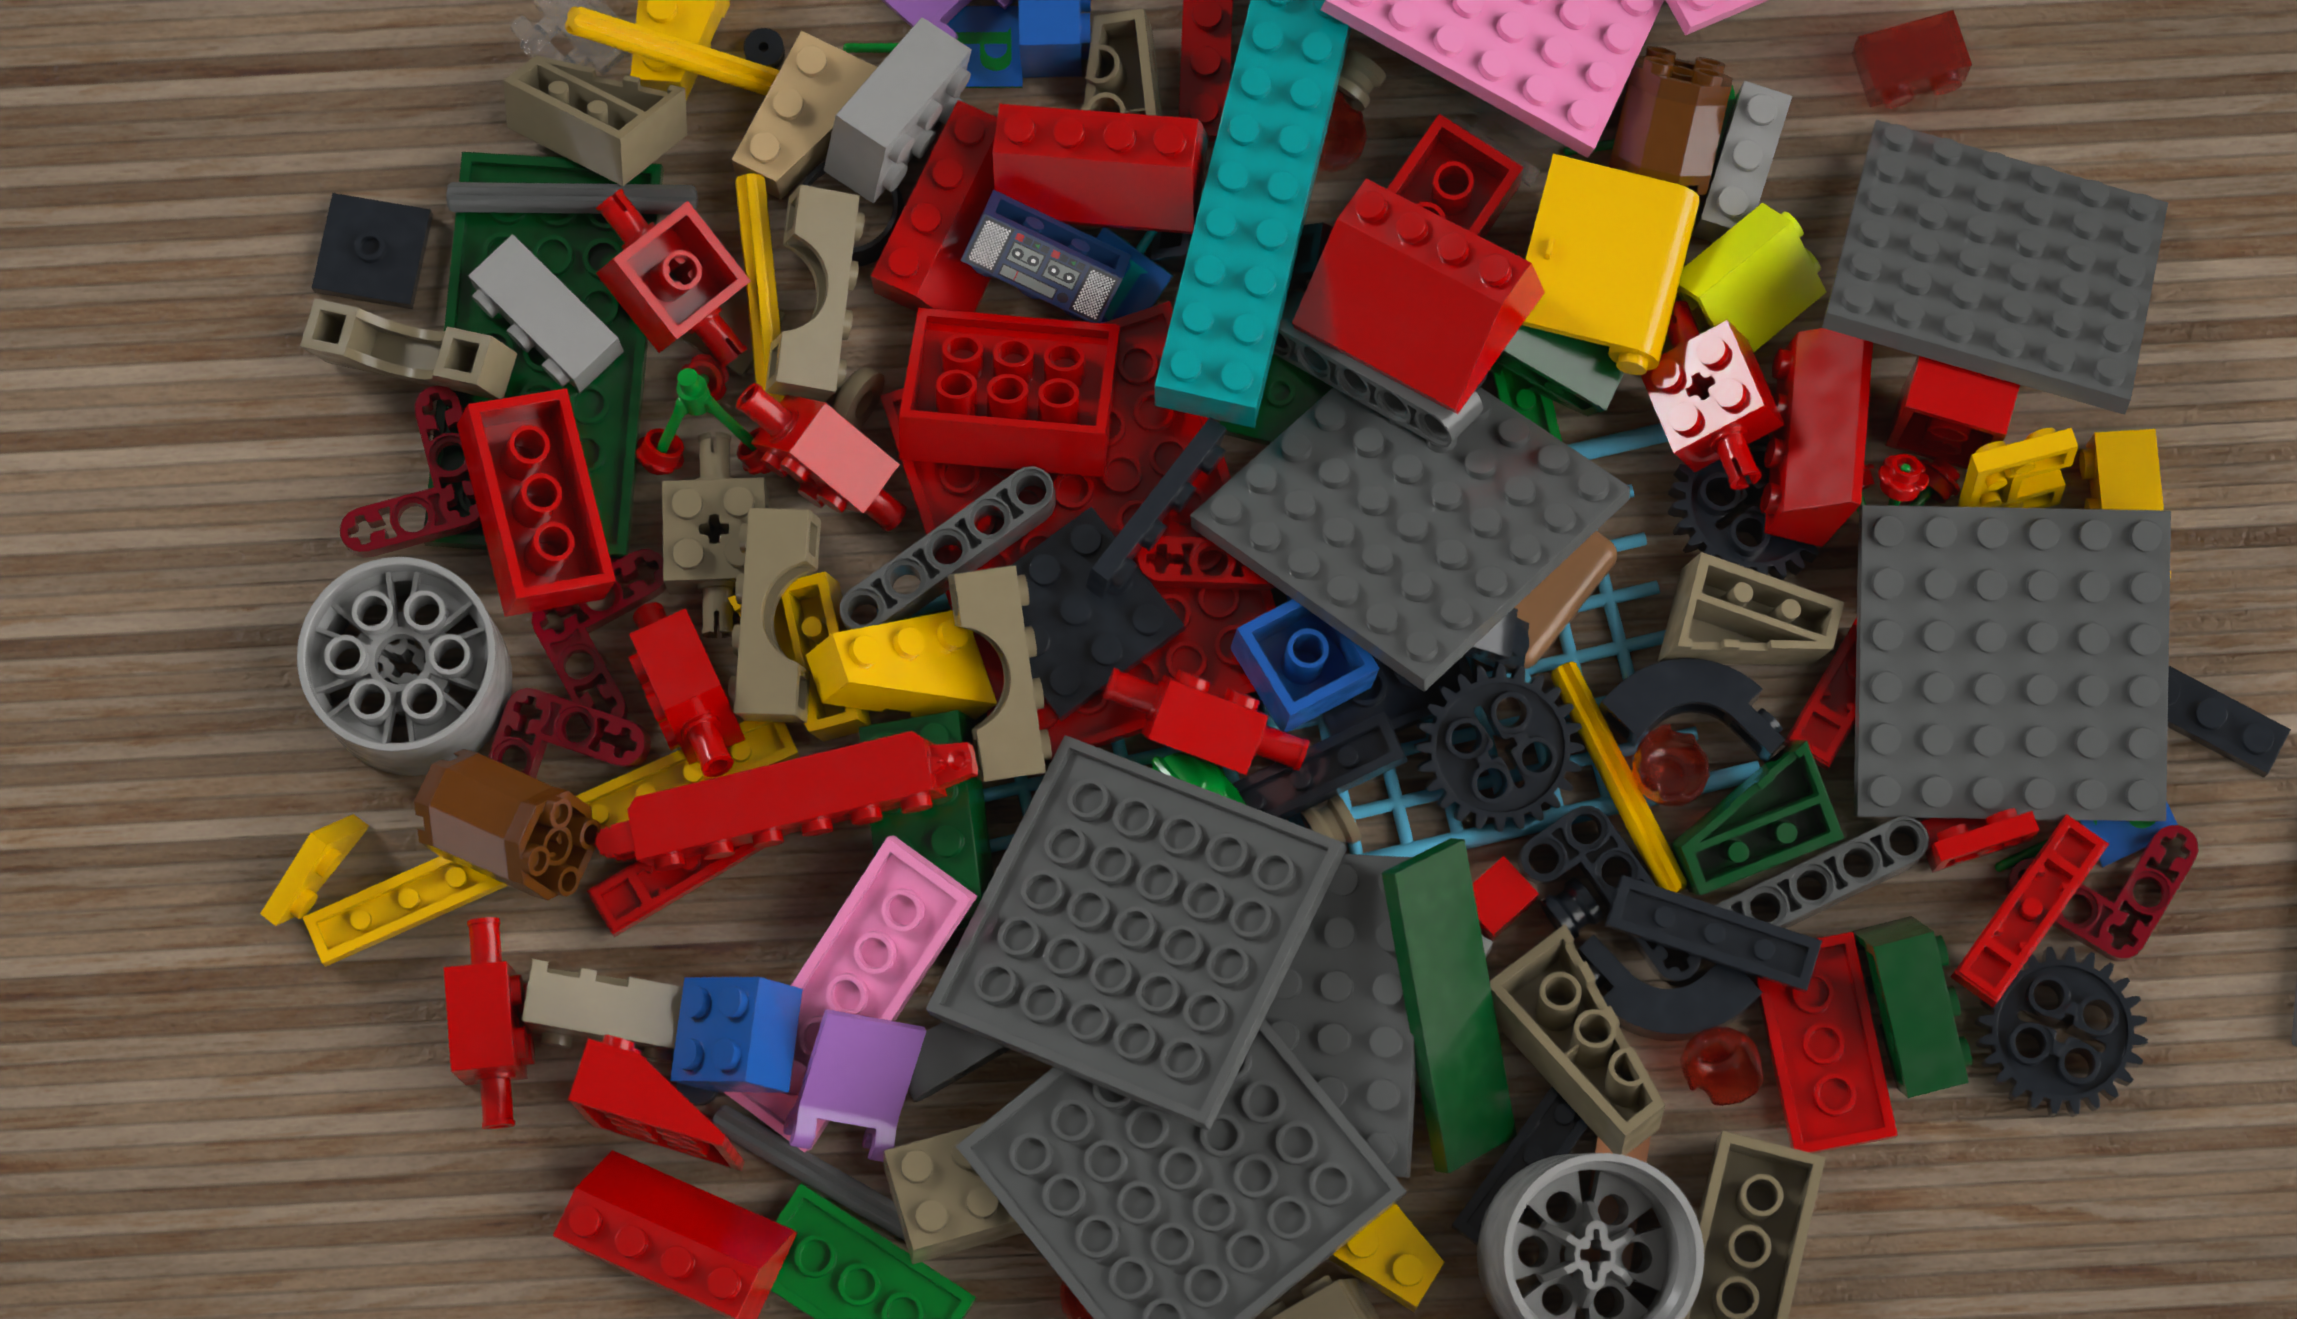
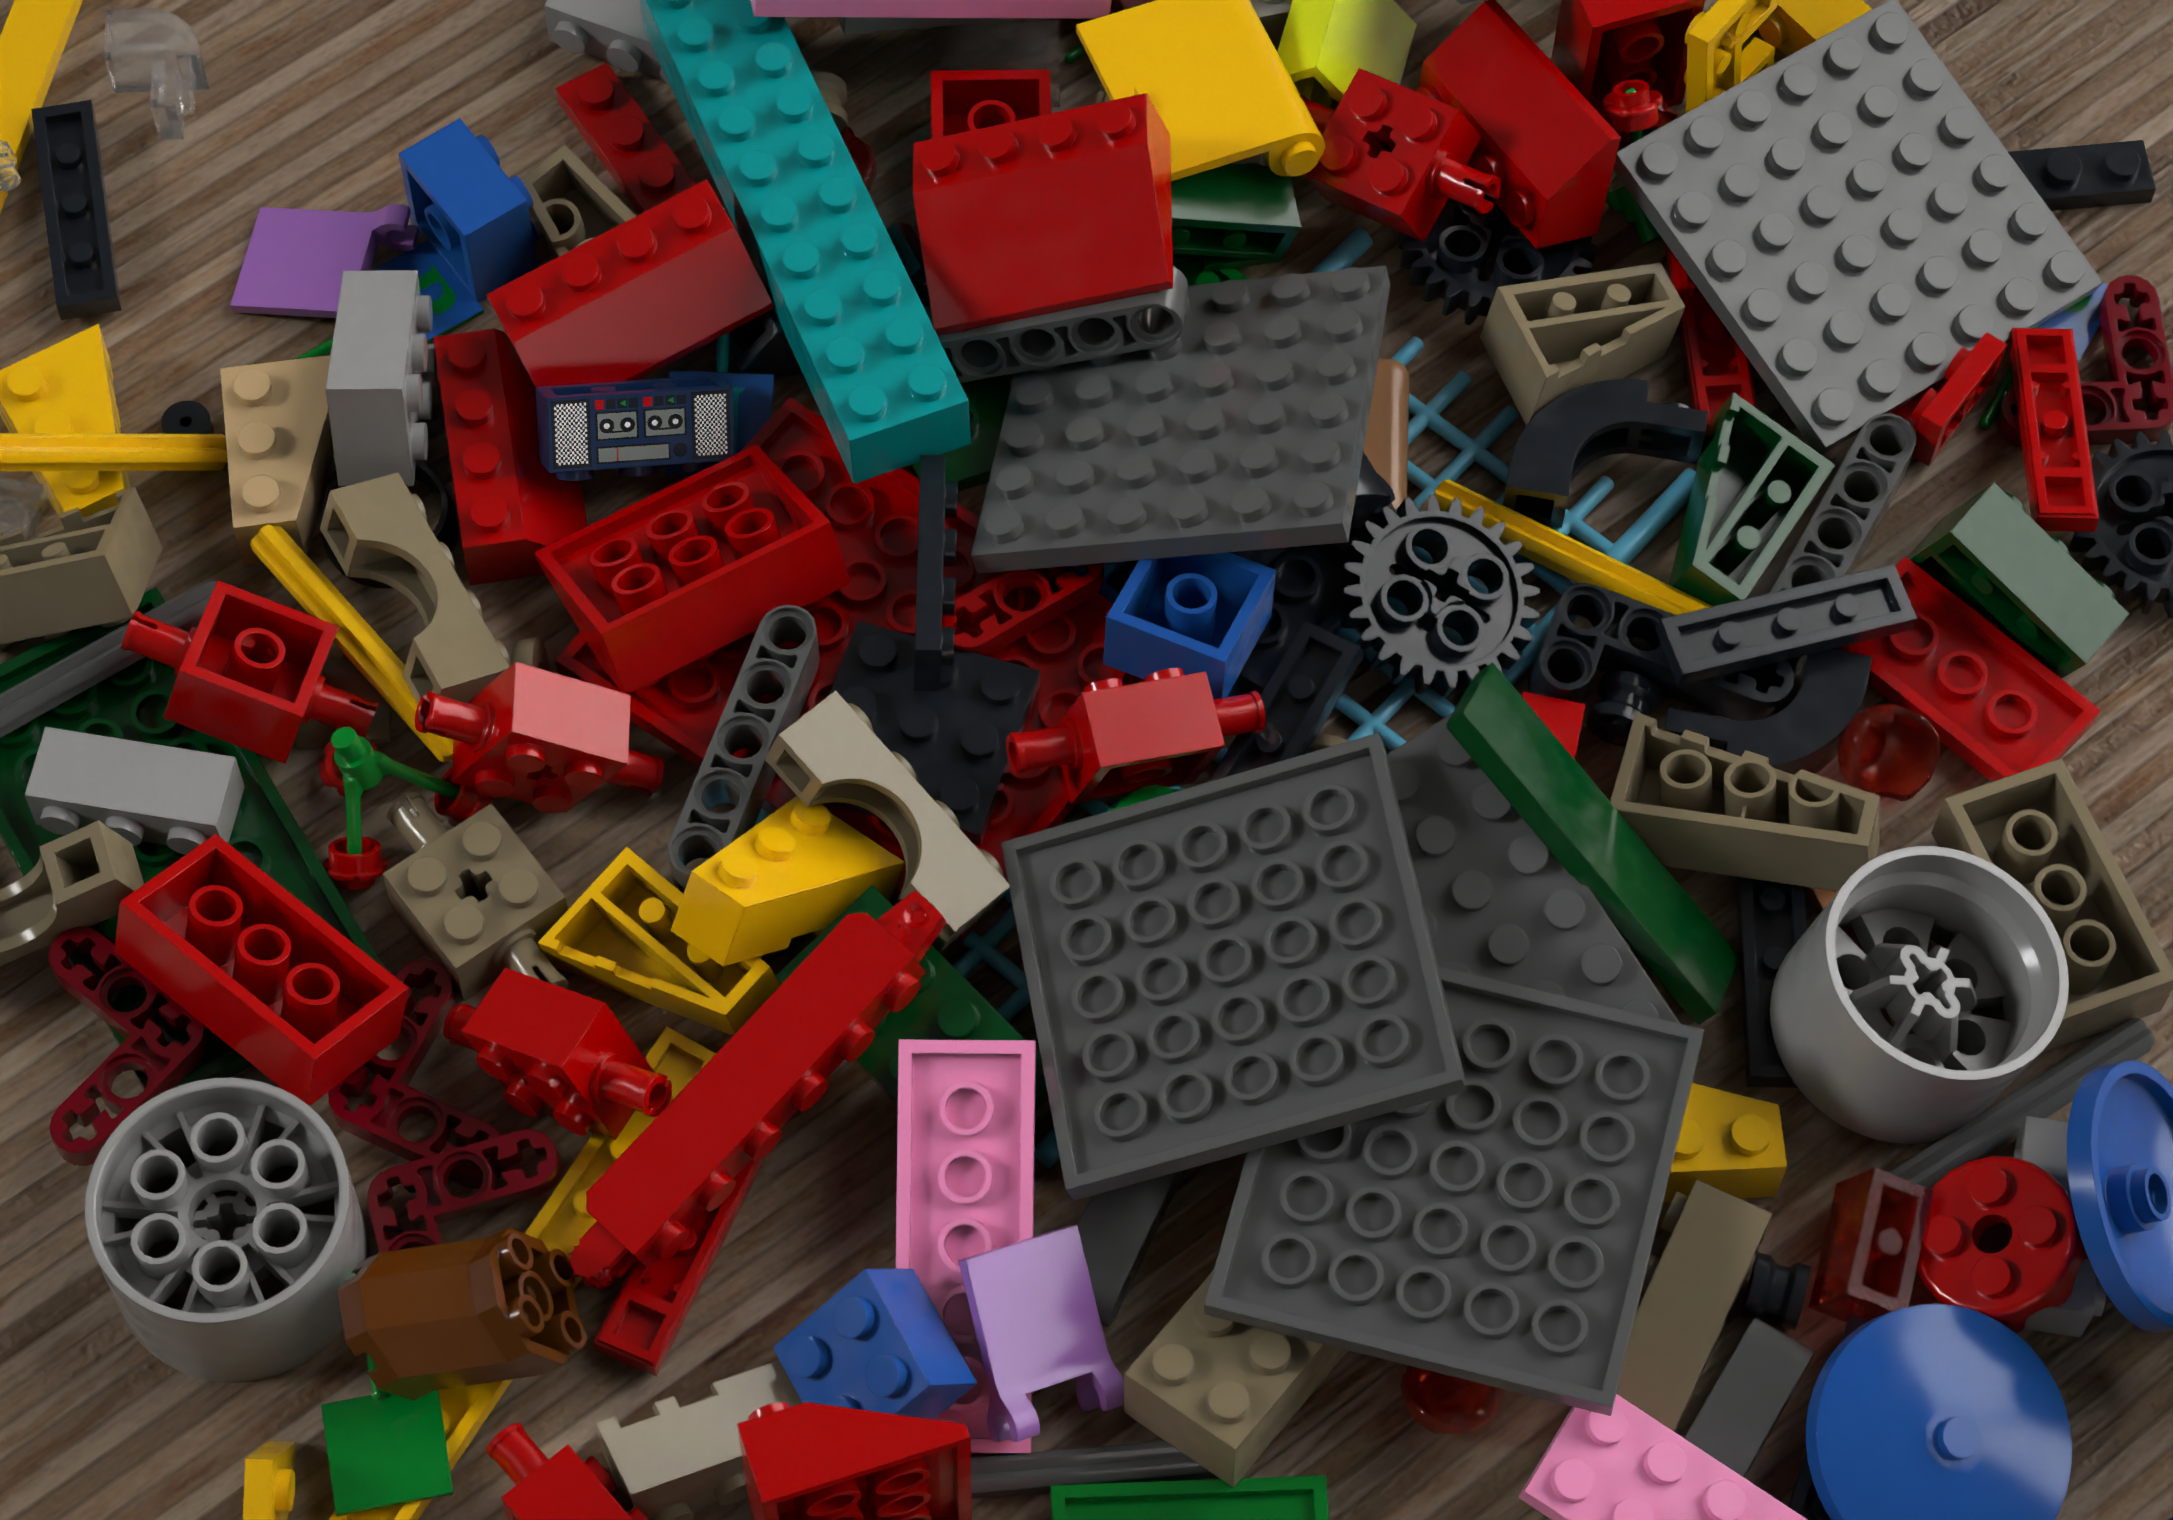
camera: 40 degrees left, 15 degrees down
(410, 877) = (385, 1450): none -> green piece
(777, 552) = (648, 976): dark tan arch -> none
(1670, 767) = (1615, 513): clear red hair -> none

